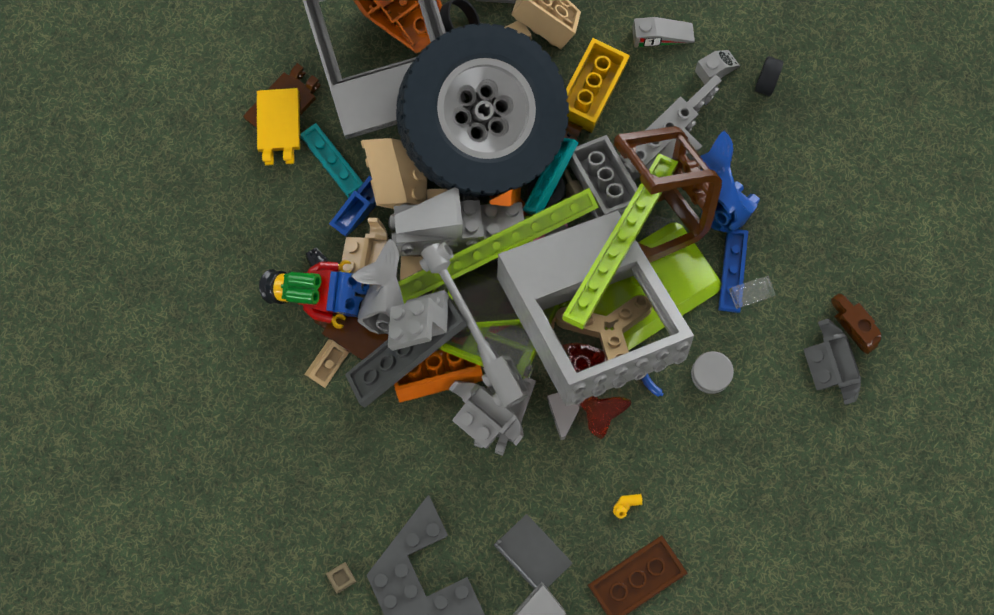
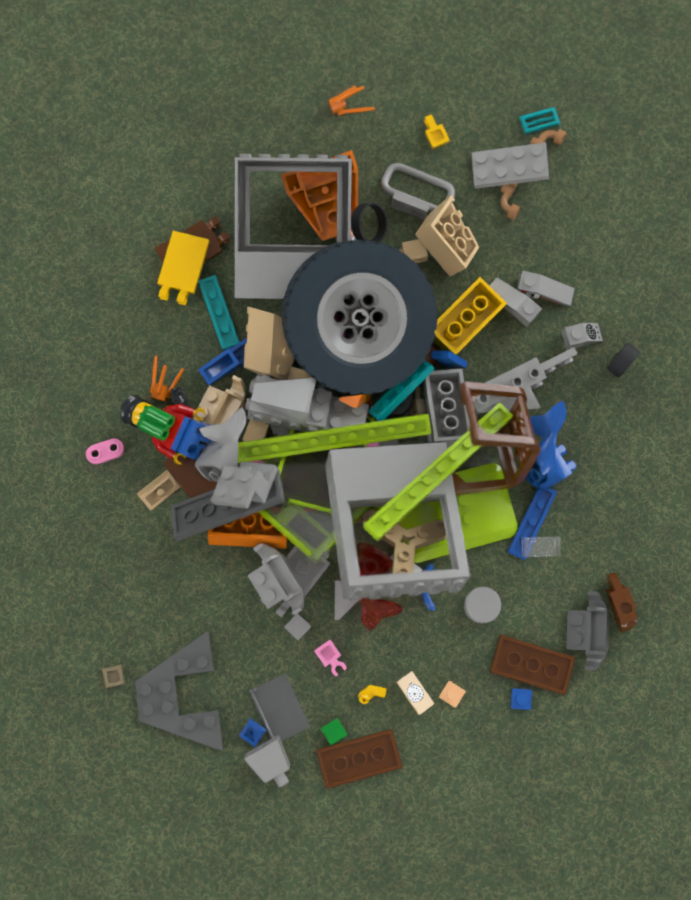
camera: 10 degrees right, 5 degrees up
(256, 341) = (105, 452): none -> bright pink plate
(295, 259) = (158, 390): none -> orange plant
(499, 371) = (298, 549): light grey bar -> none
(512, 588) = (252, 732): none -> blue tile
(523, 459) = (297, 626): none -> light grey tile
(567, 478) = (328, 655): none -> bright pink plate
(589, 130) = (449, 359): none -> blue tile
(600, 558) = (334, 731): none -> green tile
(642, 54) = (517, 304): none -> light grey slope
(673, 489) = (415, 693): none -> tan slope
(712, 477) = (452, 694): none -> light nougat plate
(786, 418) = (532, 664): none -> reddish brown tile
(787, 458) = (521, 698): none -> blue plate

